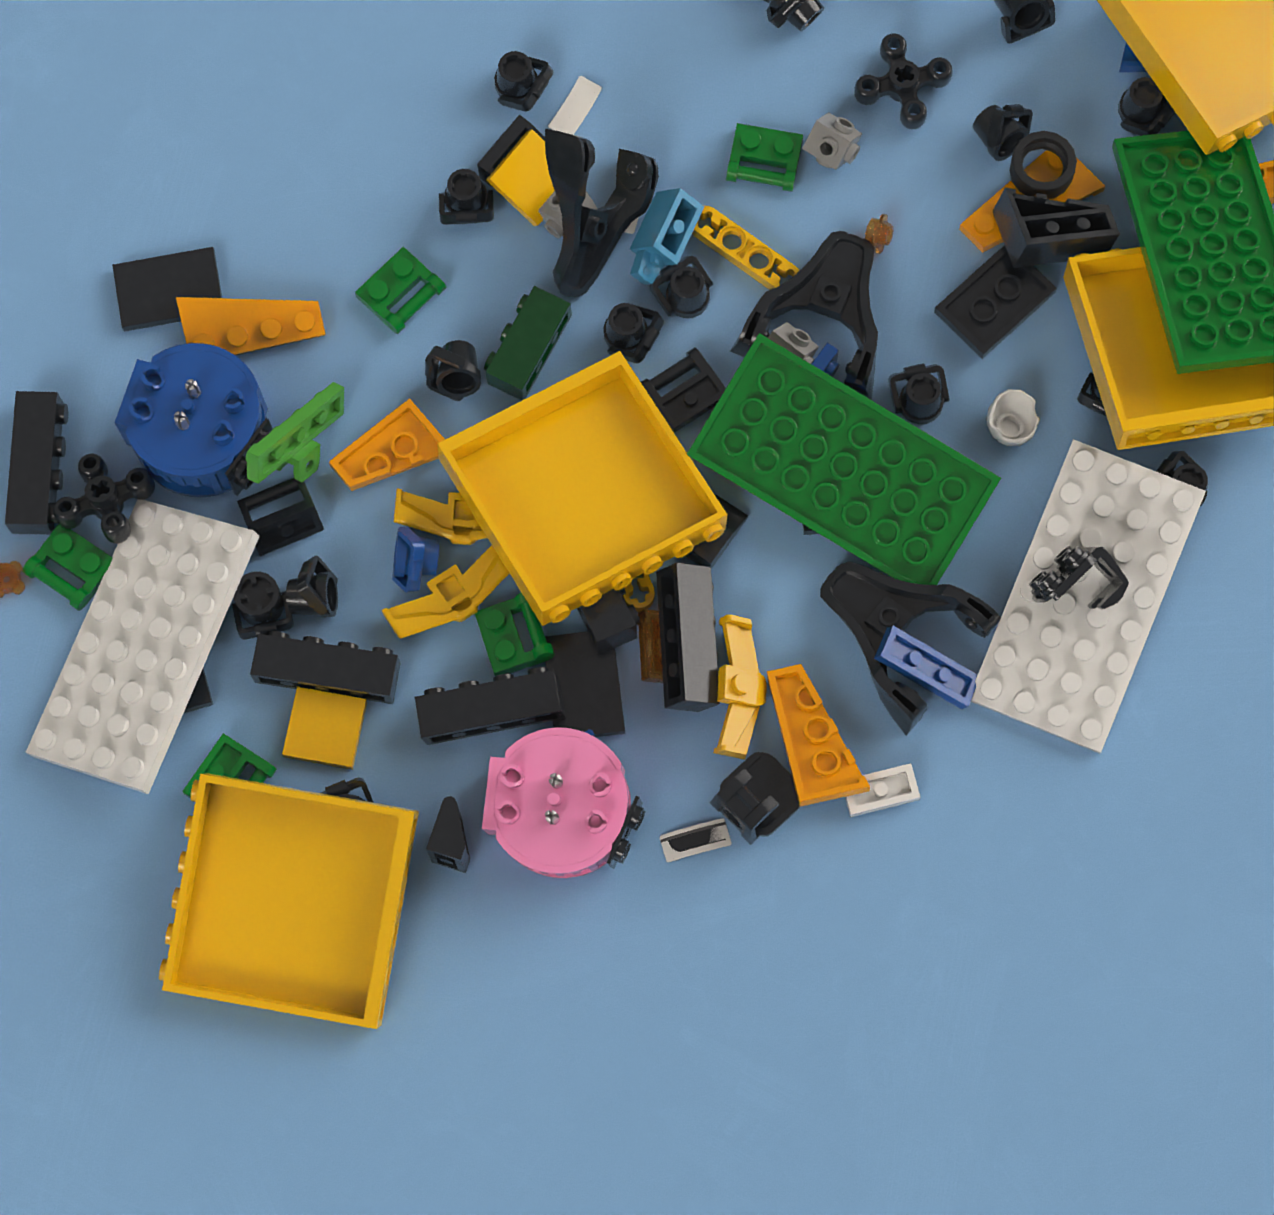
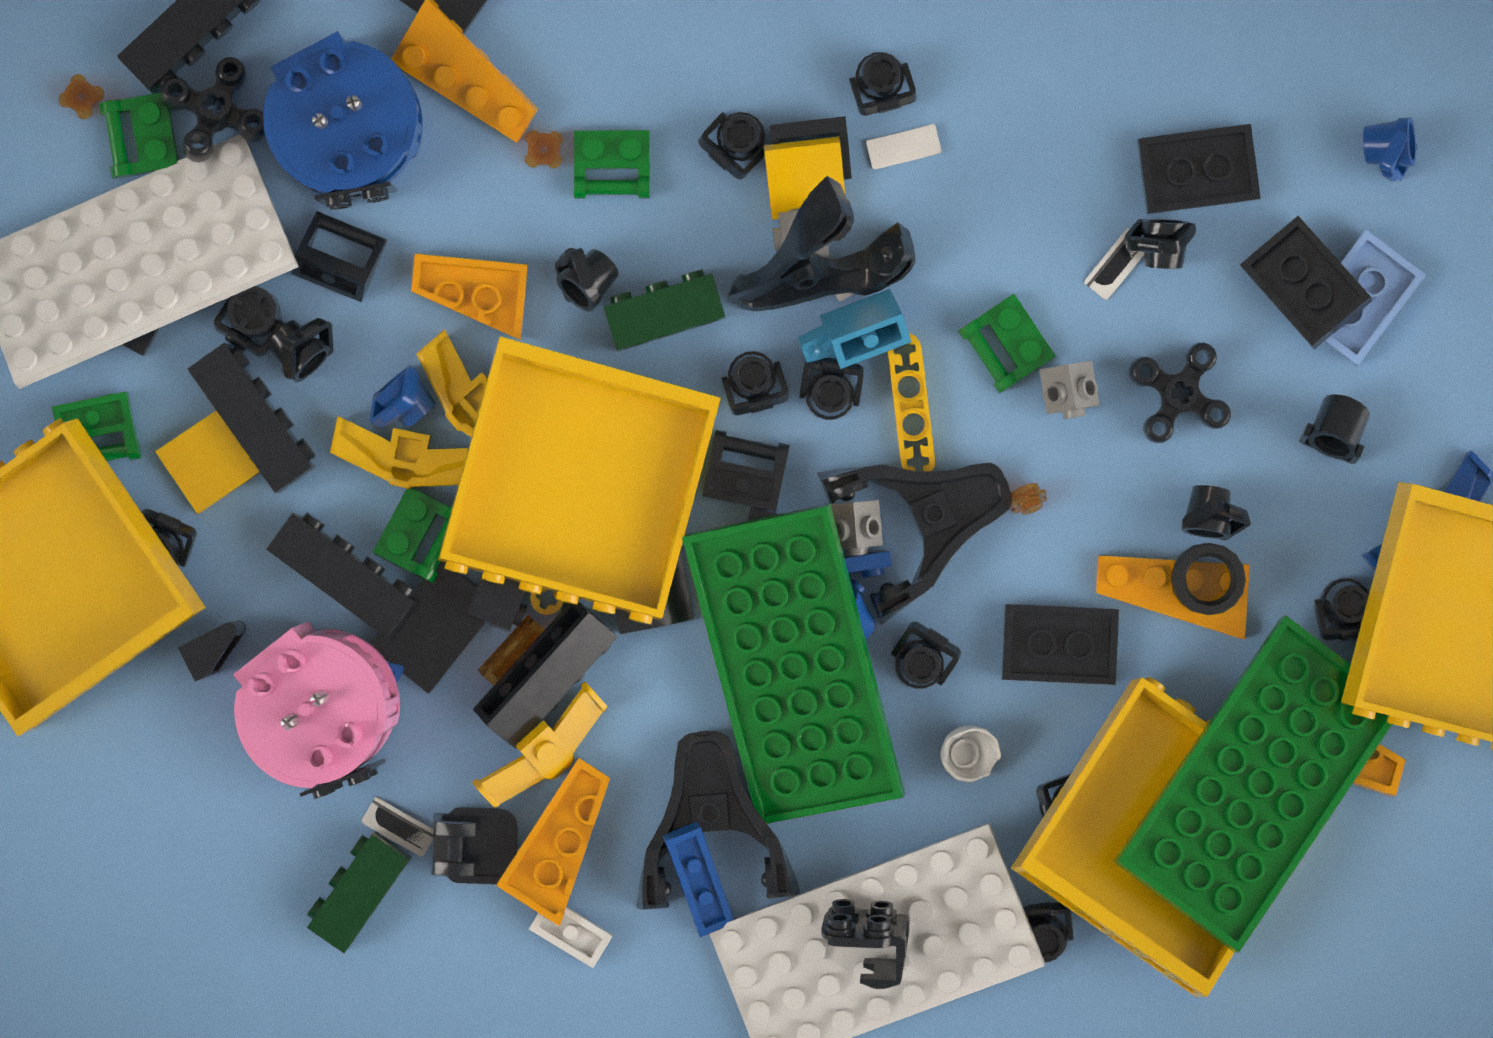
camera: 40 degrees right, 15 degrees up
(293, 438) = (400, 217): bright green plate -> none
(346, 313) = (536, 141): none -> clear orange plate
(712, 905) = (357, 890): none -> dark green brick
(782, 51) = (1113, 268): none -> sticker
(1051, 230) = (1157, 639): black wedge -> none

